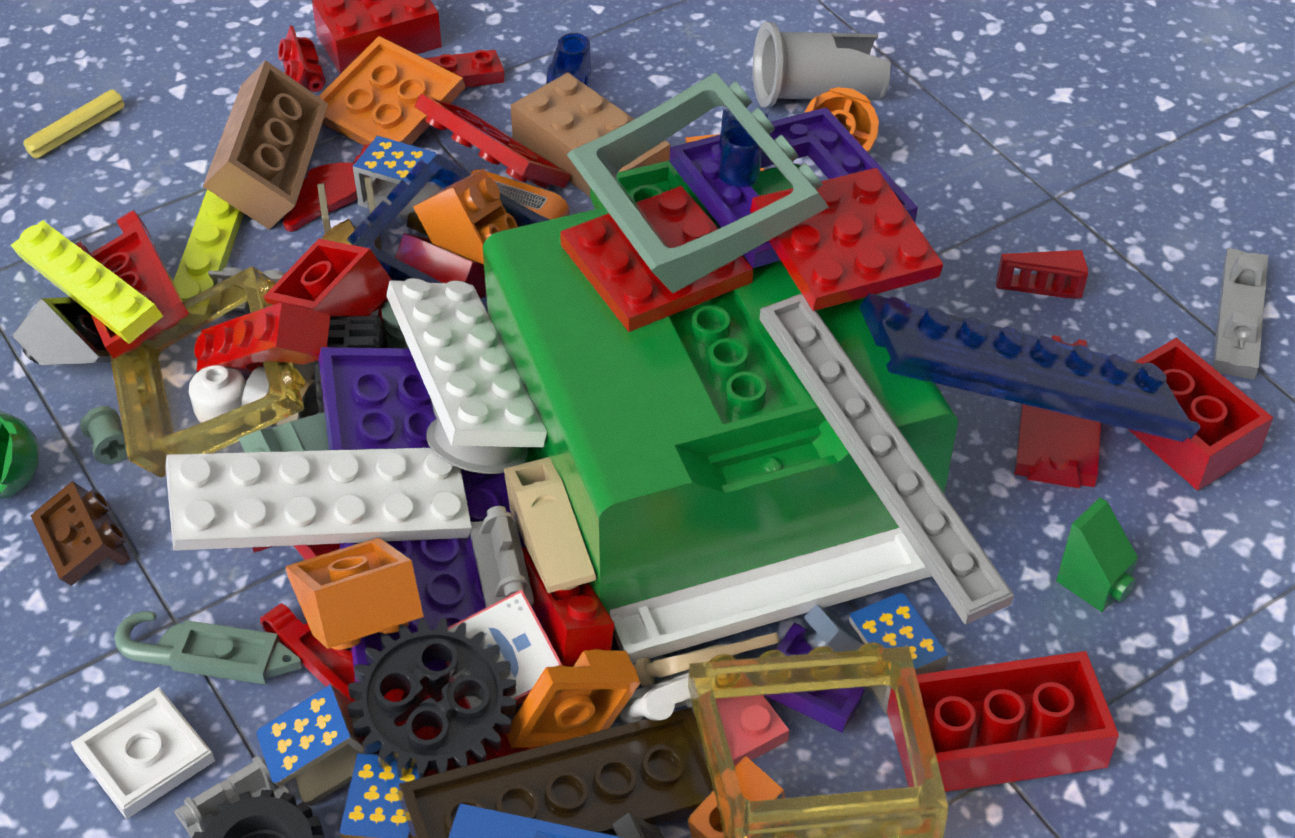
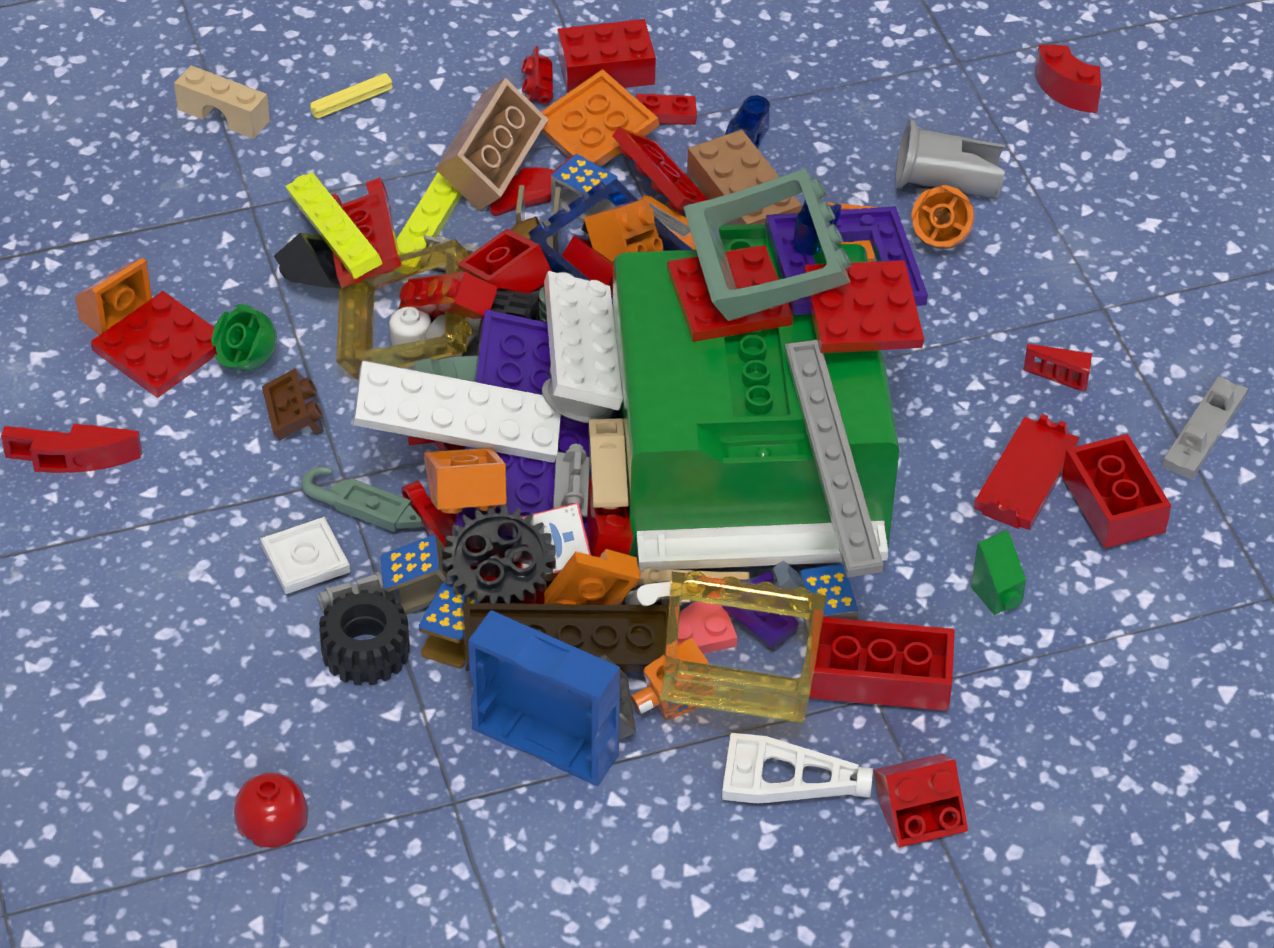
camera: 15 degrees right, 0 degrees up
(103, 429) = (323, 335): sand green bush -> none
(1024, 368) = (978, 428): clear blue plate -> none

